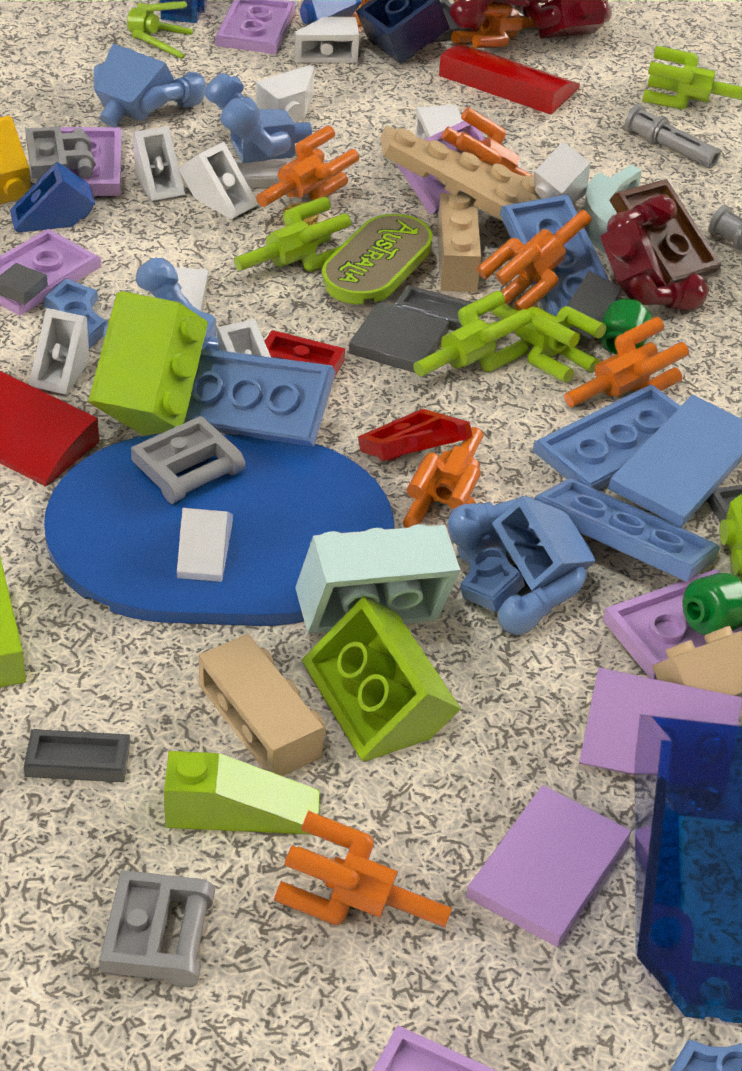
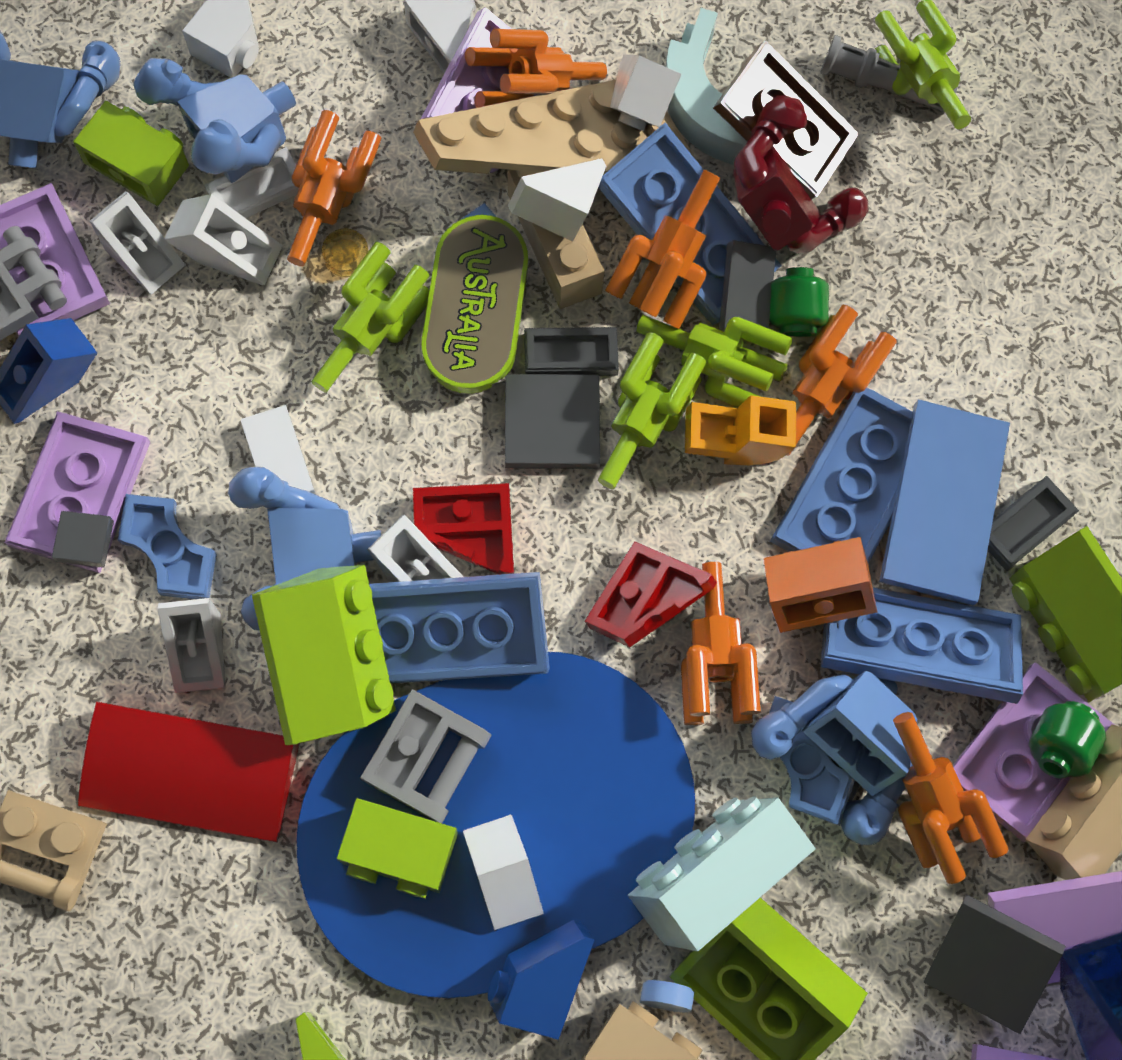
camera: 25 degrees left, 30 degrees up
(134, 493) = (396, 847): none -> lime brick
(189, 127) = (132, 152): none -> lime brick
(194, 603) = (541, 980): none -> blue slope
(292, 659) = (667, 996): none -> light blue tile
(467, 198) = (558, 197): none -> white slope
(542, 377) = (746, 435): none -> light orange brick
(554, 461) = (819, 585): none -> orange brick
(580, 720) = (994, 964): none -> dark grey tile
(586, 605) = (940, 806): none -> orange plant

